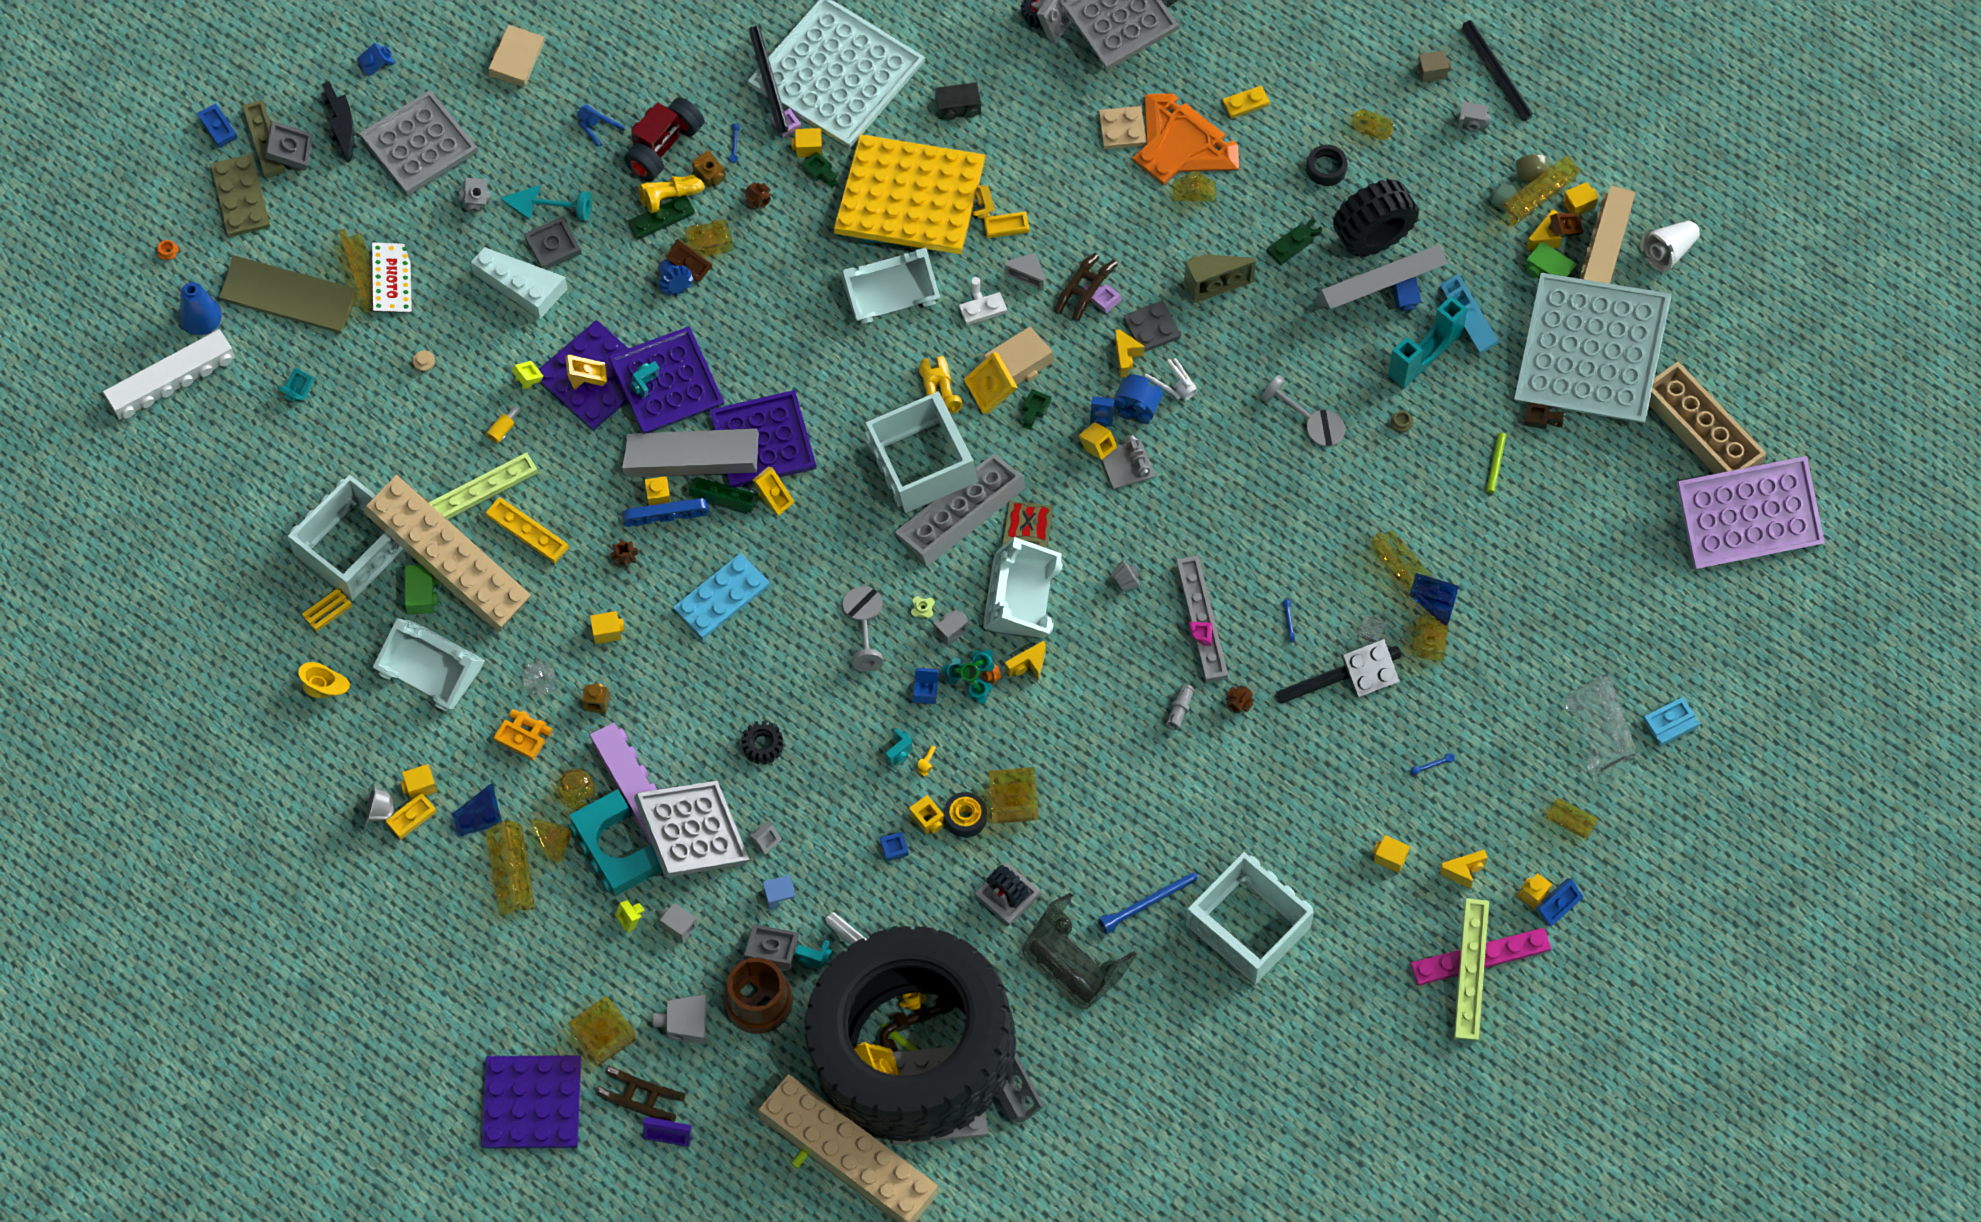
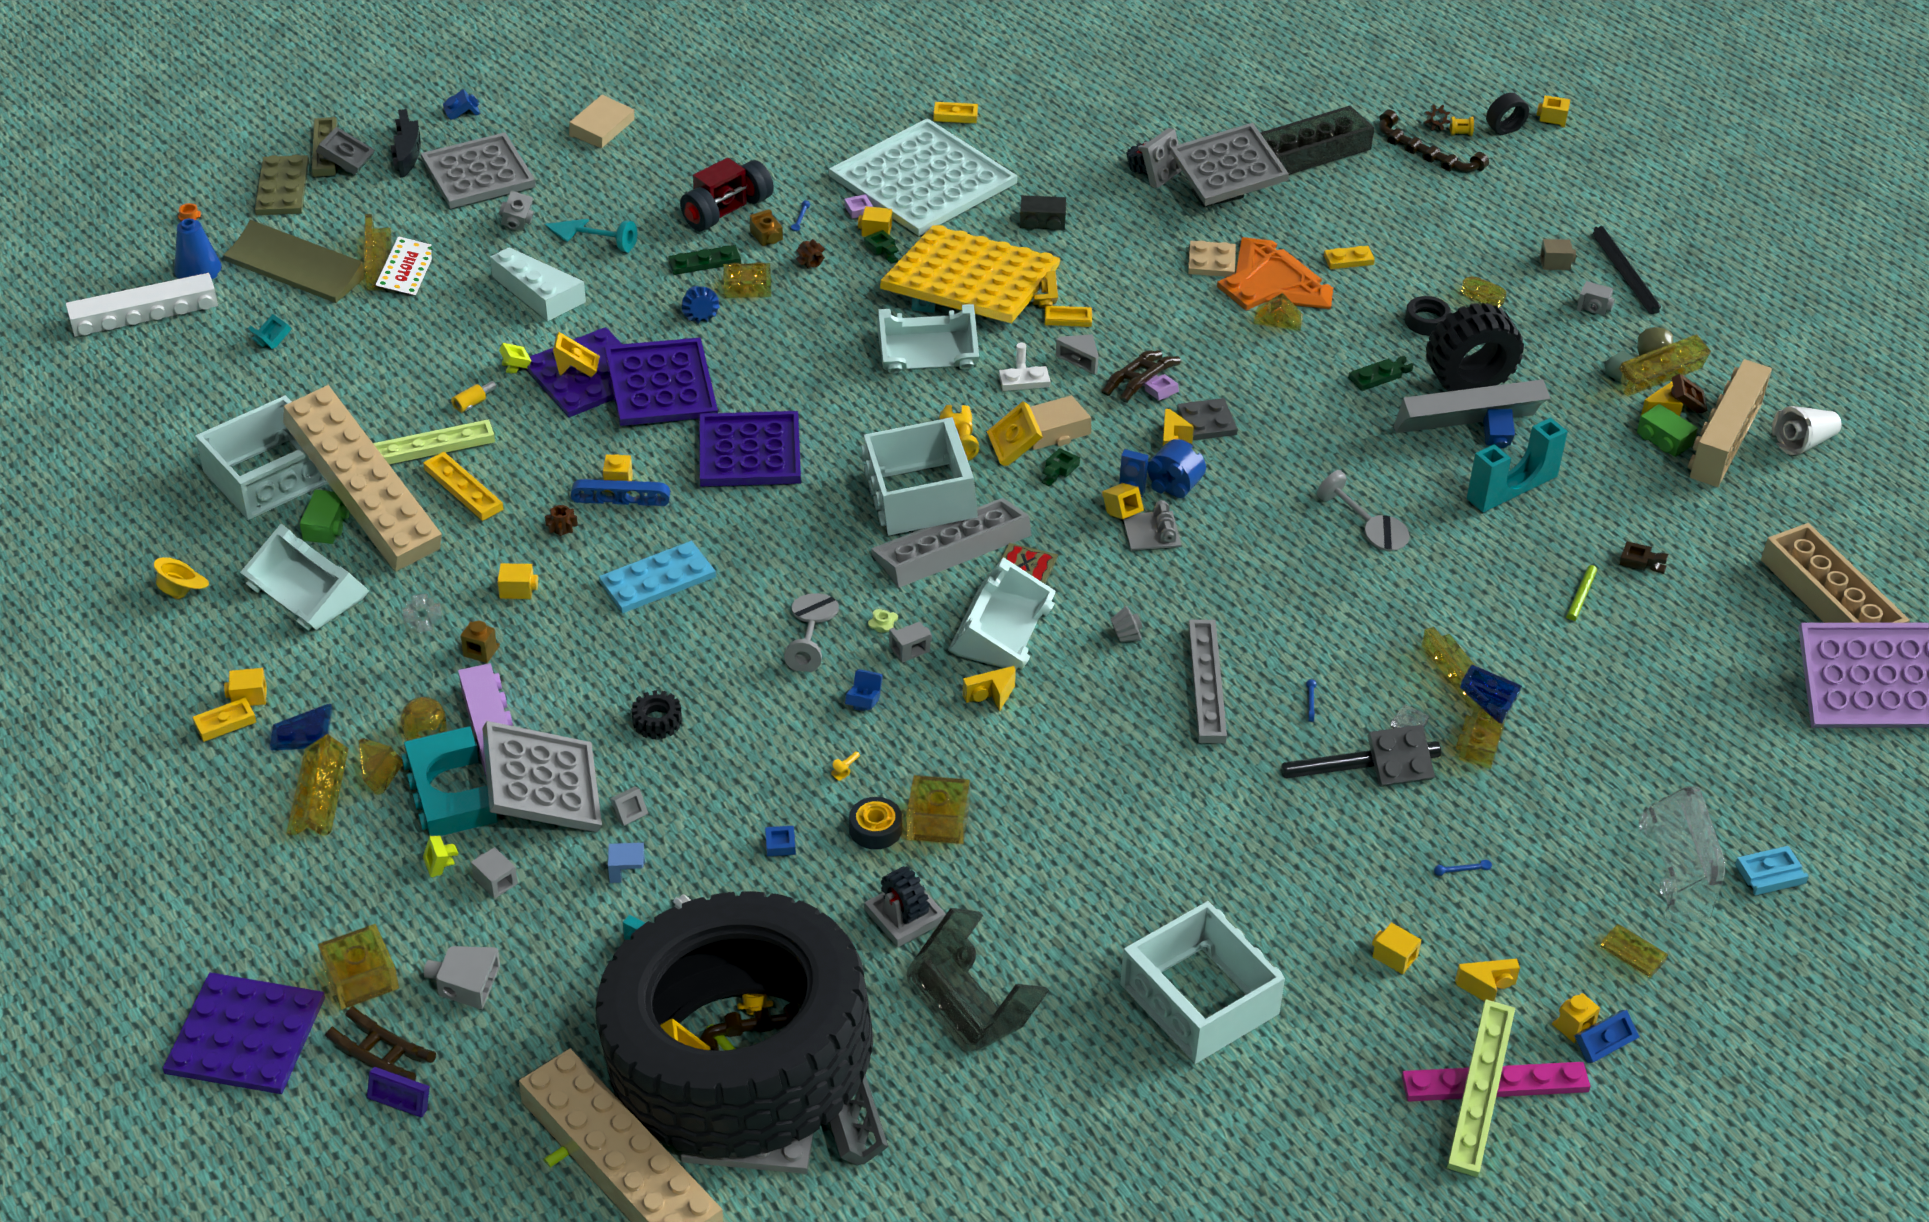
camera: 10 degrees right, 20 degrees down
(217, 125) = (283, 131): blue plate -> none
(341, 598) = (216, 521): yellow tile -> none
(379, 805) = (186, 701): light grey piece -> none
(423, 360) = (411, 334): tan plate -> none
(520, 740) = (378, 666): light orange plate -> none
(552, 243) = (584, 261): dark grey plate -> none
(590, 117) = (658, 174): blue plant -> none
(643, 375) = (636, 366): teal bracket -> none
(652, 193) = (735, 236): yellow piece -> none
(685, 256) = (726, 293): reddish brown plate -> none
(691, 453) = (668, 445): light grey arch -> none
(723, 495) = (690, 488): dark green plate -> none
(768, 79) = (850, 170): black axle -> none
(771, 983) = (556, 982): reddish brown piece -> none
(772, 945) = (595, 915): dark grey plate -> none
(773, 491) = (745, 490): yellow slope -> none
(900, 751) = (815, 746): teal bracket -> none
(927, 808) = (830, 820): yellow brick -> none
(970, 672) = (913, 677): teal plant -> none
(991, 676) = (944, 692): orange plate -> none
(1111, 921) = (1026, 961): blue piece -> none
(1180, 707) = (1162, 760): light grey pin -> none
(1184, 387) = (1231, 471): white plant -> none
(1201, 632) = (1203, 689): dark pink tile -> none
(1217, 274) = (1290, 379): olive slope -> none
(1239, 699) = (1236, 761): reddish brown gear -> none
(1401, 421) = (1476, 538): olive plate -> none
(1475, 321) = (1576, 464): medium azure slope -> none
(1580, 199) = (1709, 378): yellow brick -> none
(1593, 347) = (1710, 493): light aqua plate -> none

